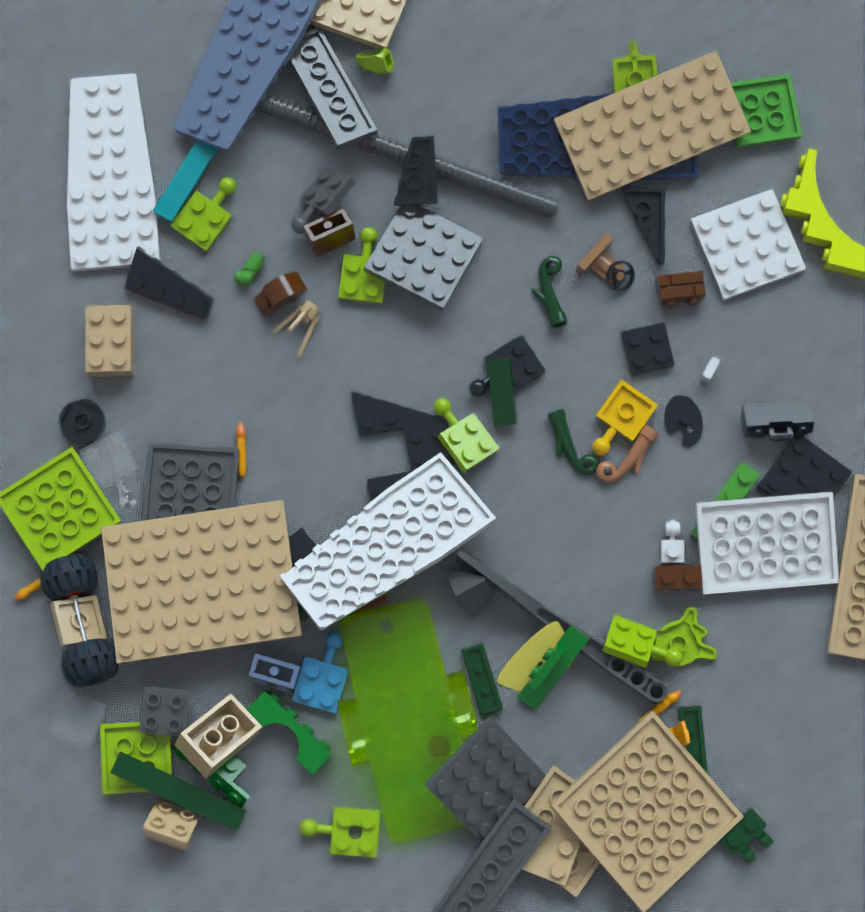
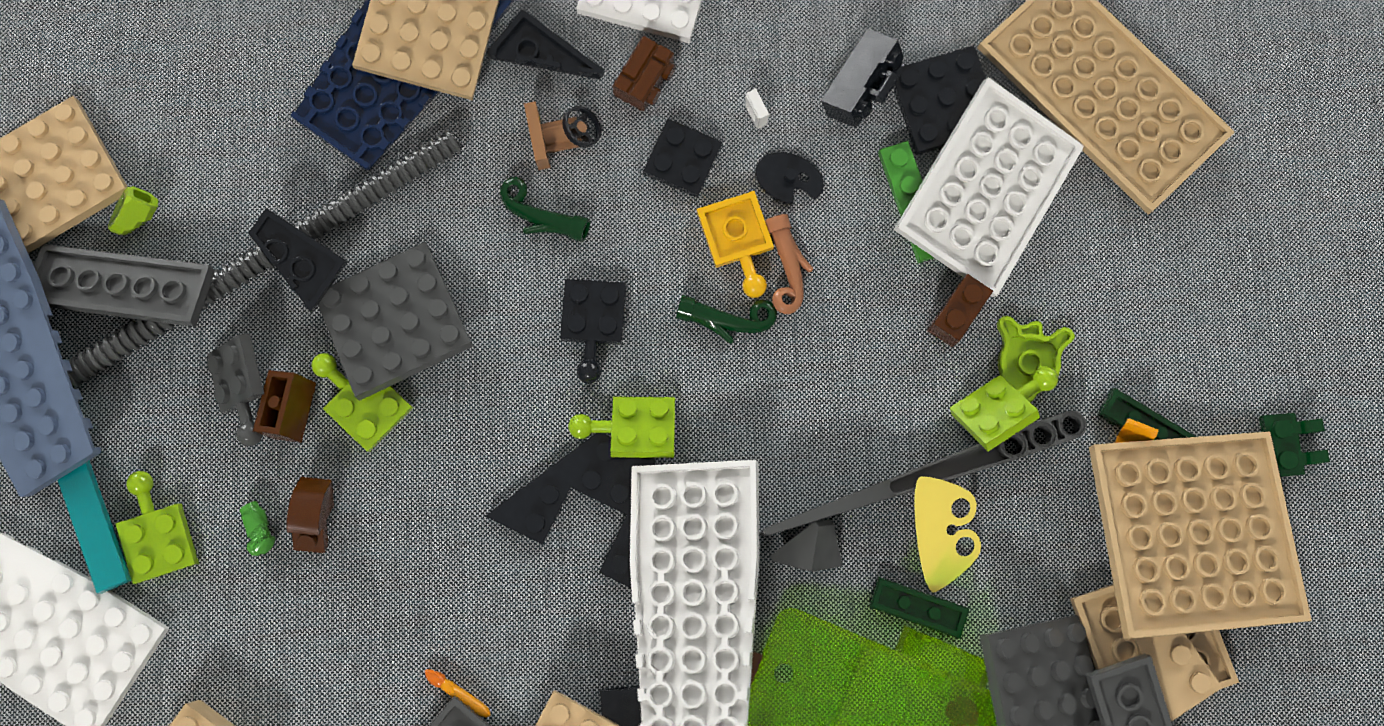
camera: 55 degrees left, 0 degrees up
(157, 282) = (187, 648): black wing -> none
(305, 313) = (356, 502): tan plant -> none
(502, 391) = (614, 347): dark green tile -> none
(552, 668) = (965, 518): green bracket -> none
(661, 706) = (1087, 438): light orange piece -> none
(672, 550) = (922, 293): white plate -> none

